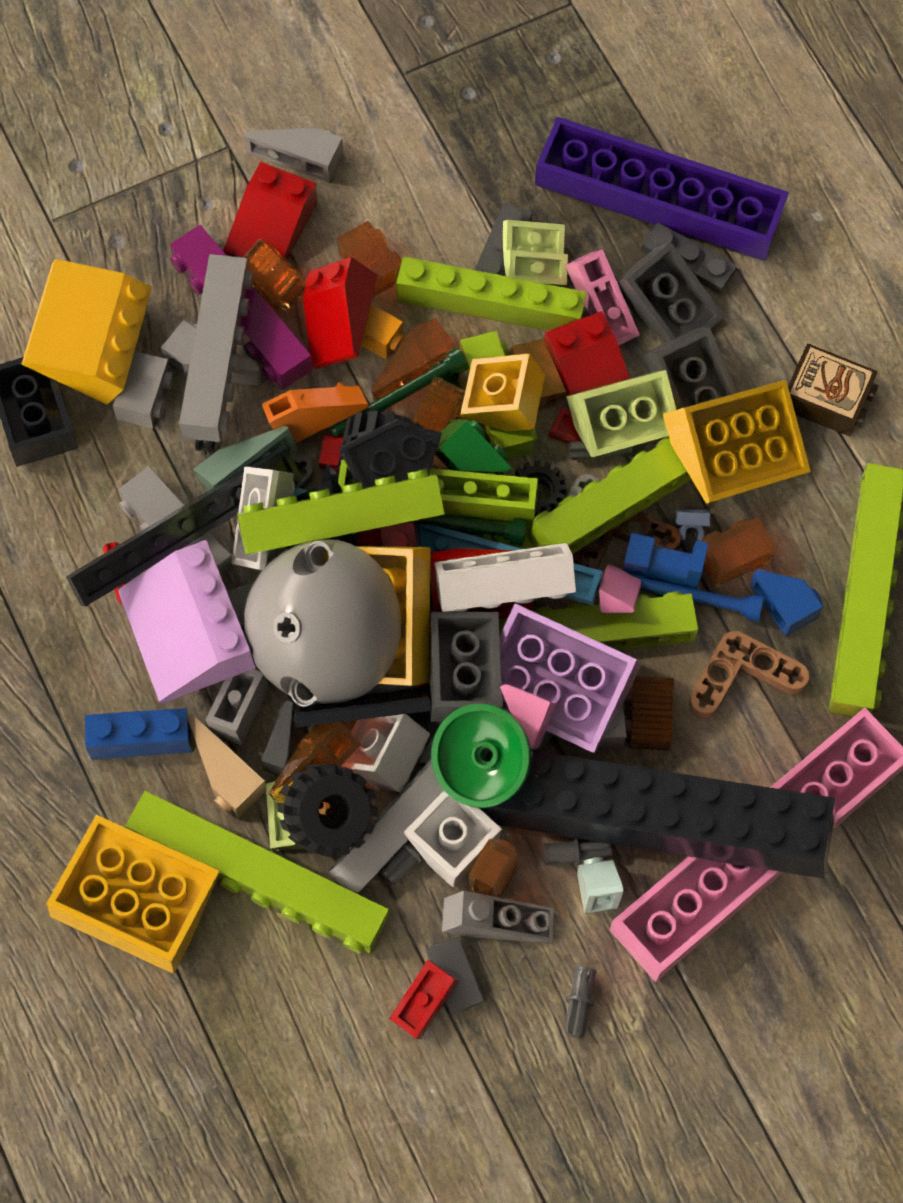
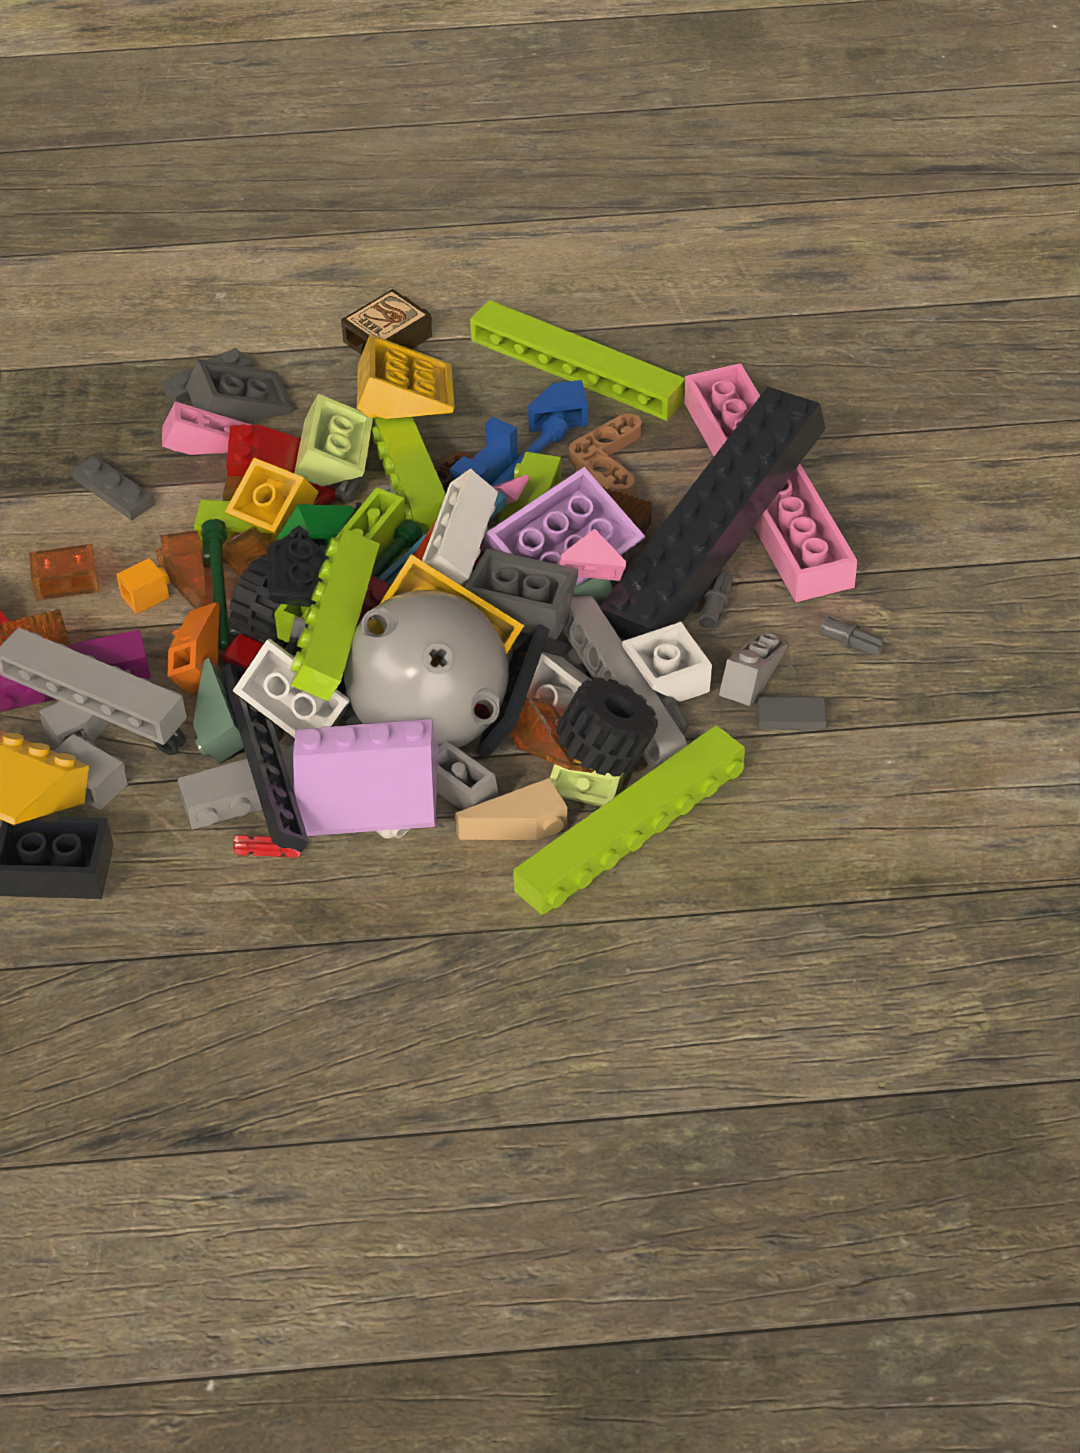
camera: 65 degrees left, 20 degrees down
(133, 893) = (613, 910): yellow slope -> none
(137, 733) = (448, 868): blue brick -> none
(280, 742) = (511, 764): dark grey slope -> none
(337, 310) = (108, 596): red slope -> none
(423, 999) = (807, 732): red plate -> none
(461, 761) = (628, 583): green dish -> none
(488, 295) = (159, 501): lime brick -> none
(493, 868) = (716, 638): clear orange brick -> none
(535, 251) = (136, 463): yellowish green slope -> none
(599, 885) = (757, 586): light aqua slope -> none
(660, 188) = (131, 365): dark purple brick -> none
(692, 367) = (303, 385): dark grey slope -> none
(692, 519) = (455, 440): sand blue tile -> none
(737, 551) = (499, 405): clear orange brick -> none

